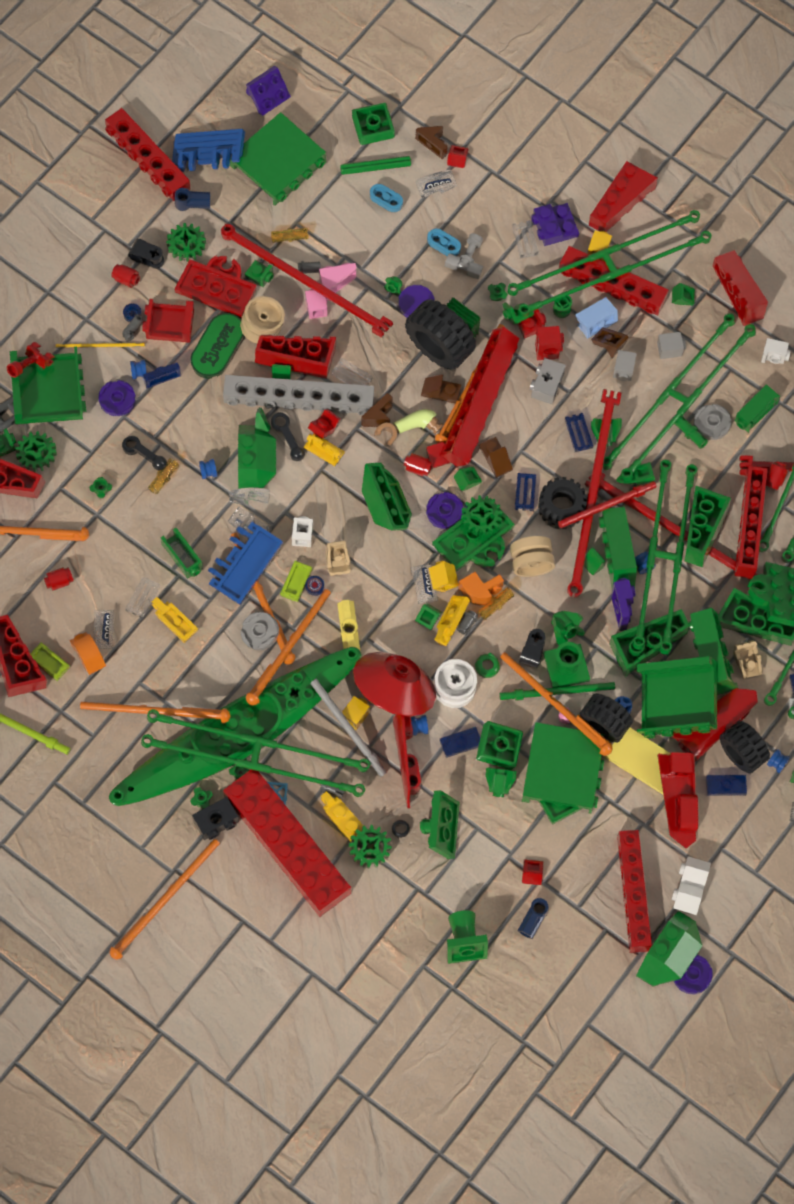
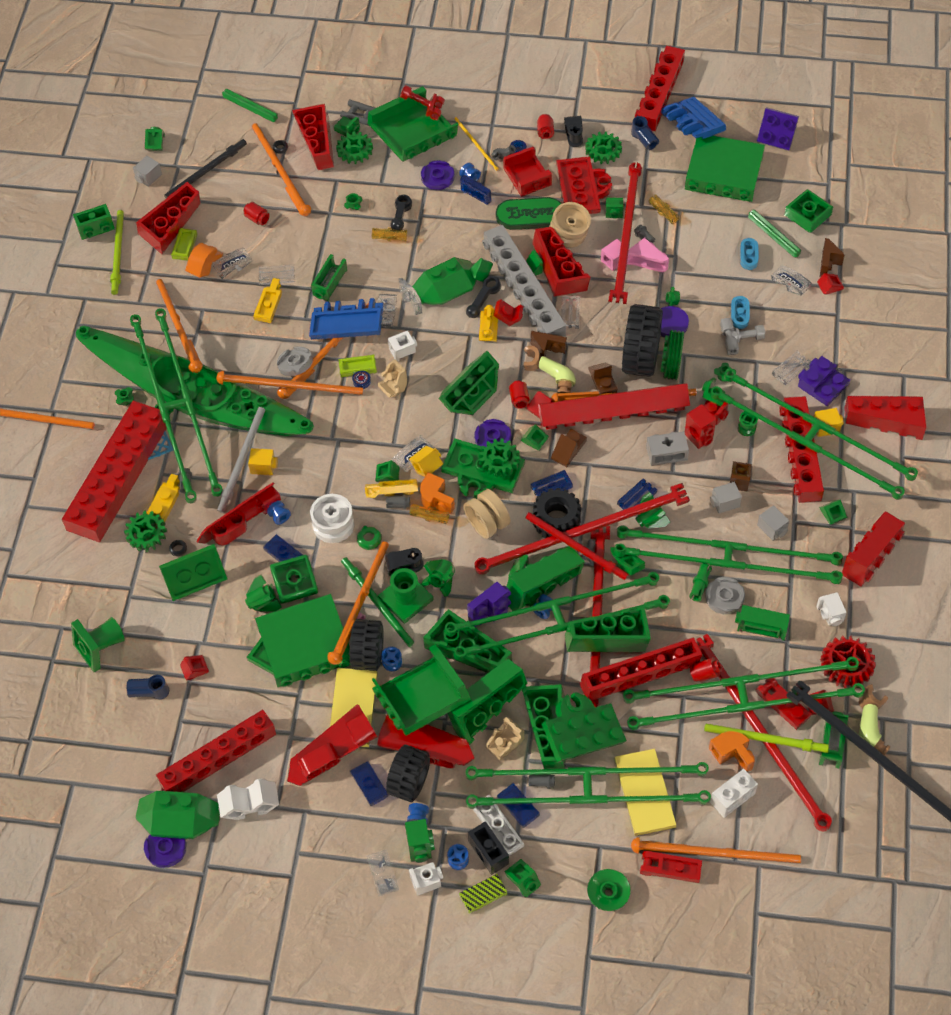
camera: 65 degrees right, 10 degrees down
(208, 468) = (415, 258): blue wheel -> none
(221, 809) = (105, 405): black brick -> none
(348, 619) = (342, 415): light yellow piece -> none
(394, 684) = (288, 476): red dish -> none
(597, 316) = (757, 453): light blue hinge -> none

